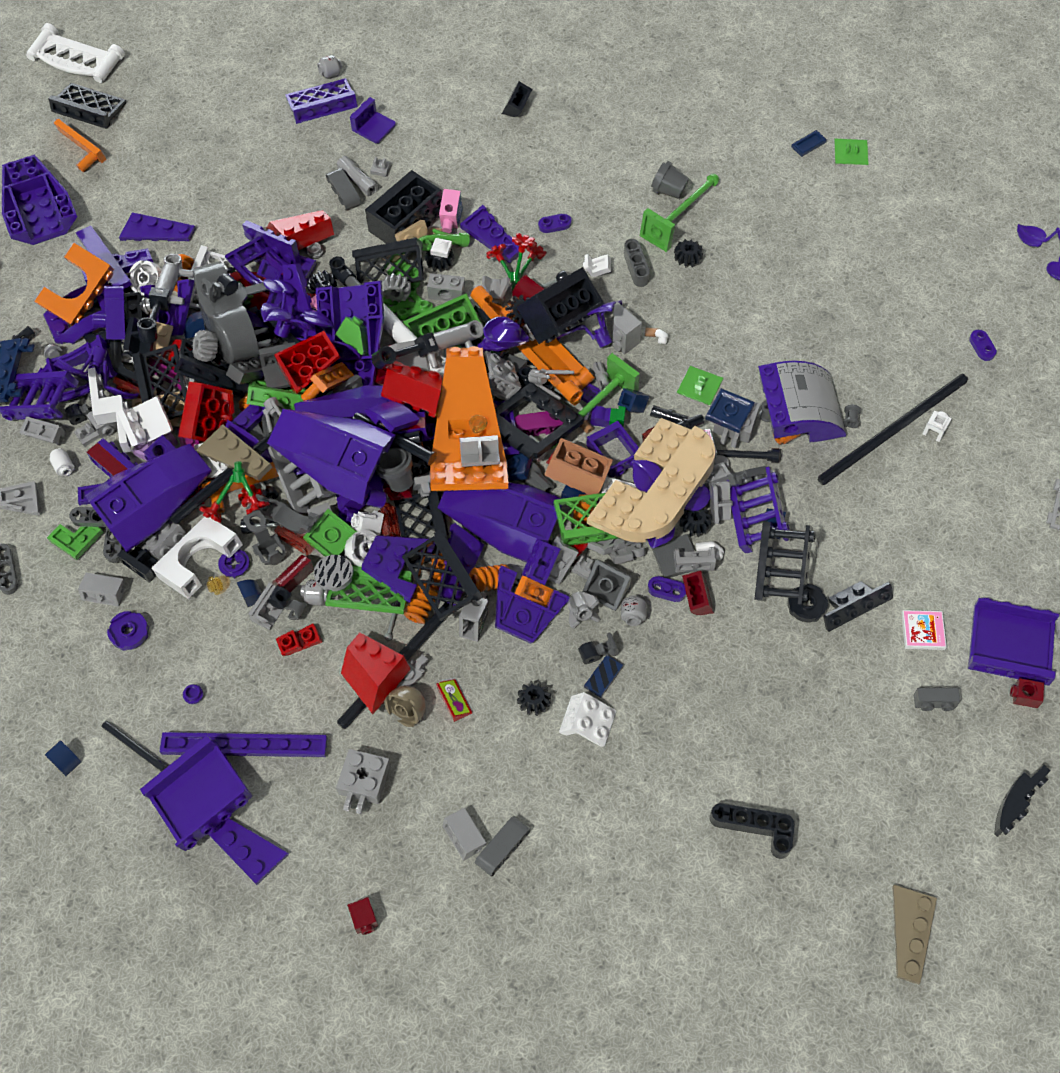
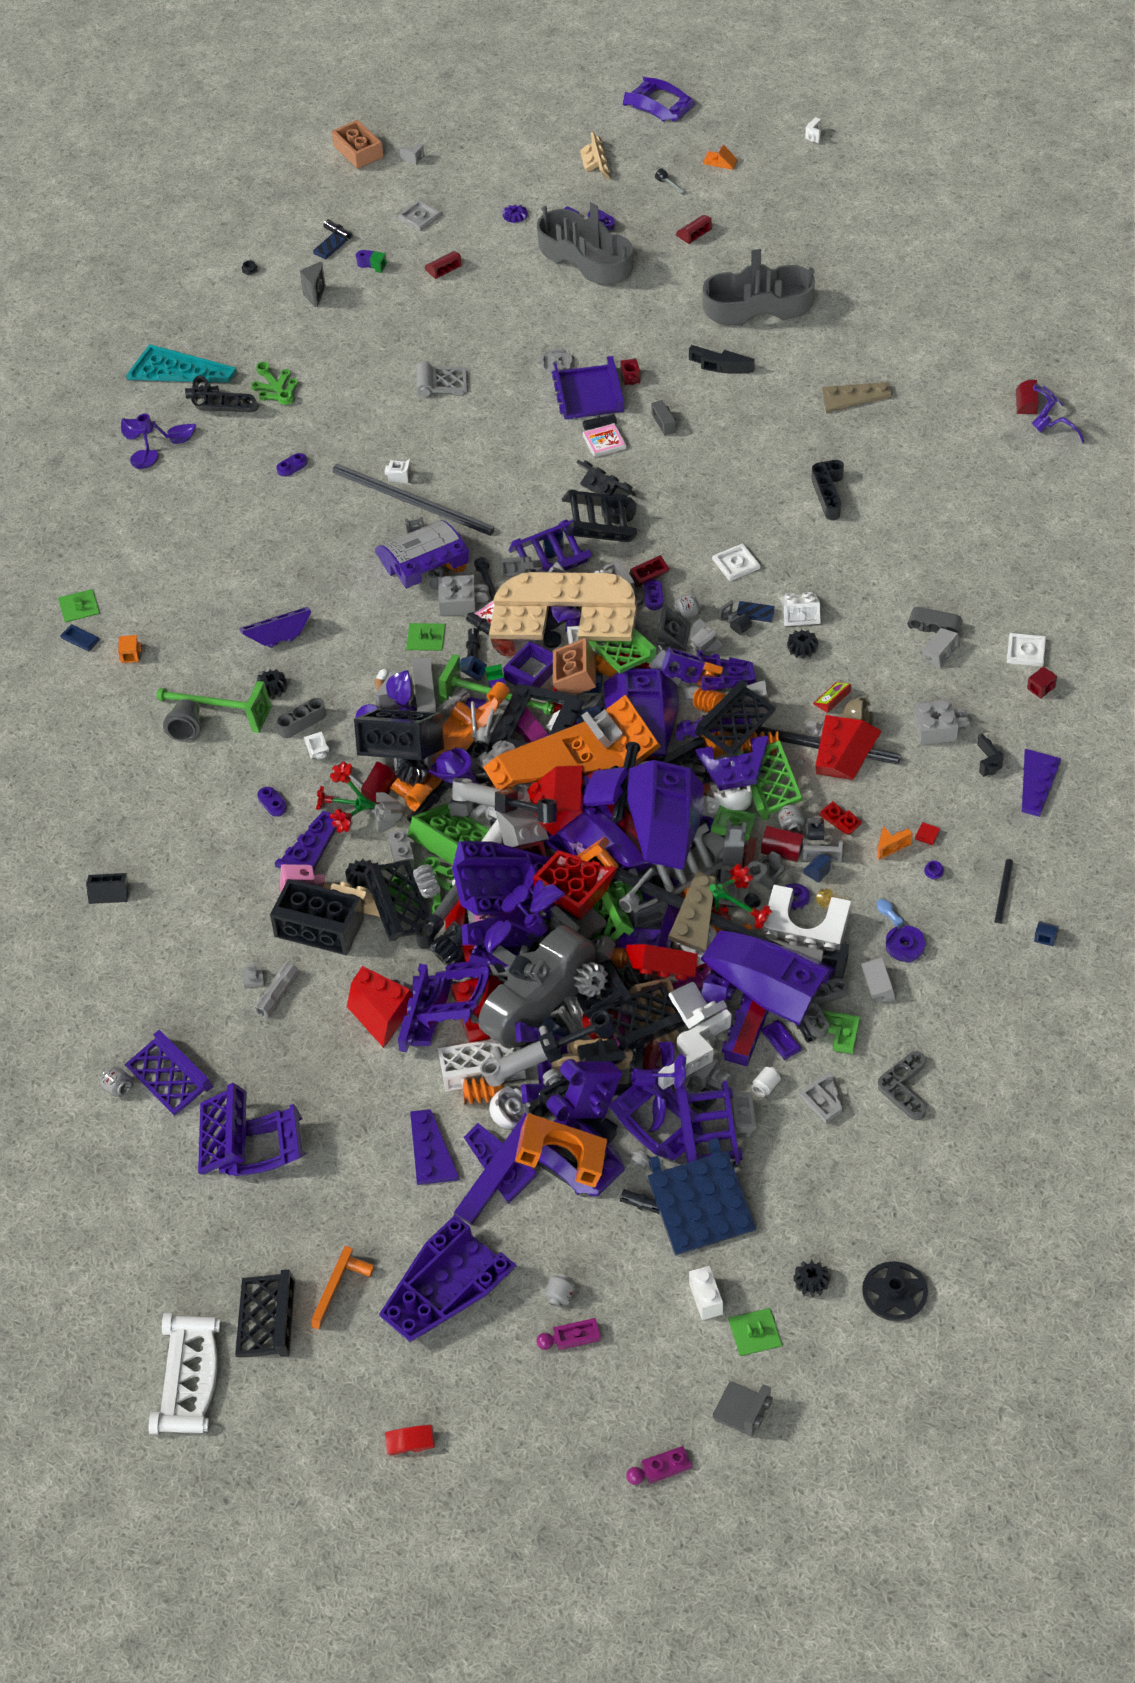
camera: 110 degrees left, 10 degrees down
(176, 635) = (886, 908): none -> medium blue piece
(197, 793) = (1019, 816): dark purple panel -> none
(200, 136) = (289, 1141): none -> dark purple wedge
(238, 709) = (927, 833): none -> red tile
(241, 666) = (889, 844): none -> orange slope
(244, 112) = (234, 1127): none -> dark purple fence
(249, 744) = (957, 815): dark purple plate -> none
(291, 816) = (995, 757): none -> black bracket
(333, 572) = (770, 802): light grey tile -> none
(343, 188) = (300, 993): dark grey beam -> none
(354, 334) = (511, 874): bright green slope -> none
(370, 123) = (191, 1006): dark purple bracket -> none
(422, 928) = (1026, 649): none -> white tile
(441, 247) = (357, 864): white tile -> none
(460, 239) = (331, 866): bright green plant -> none
(478, 423) = (571, 739): clear yellow plate -> none
(643, 362) = (424, 684): none -> light grey beam
(683, 687) = (736, 562): none -> white tile
(729, 410) = (460, 589): dark blue tile -> none
(754, 267) = (277, 628): none -> dark purple wedge
(777, 167) = (129, 648): none -> orange brick
(953, 633) = (599, 422): none -> black axle

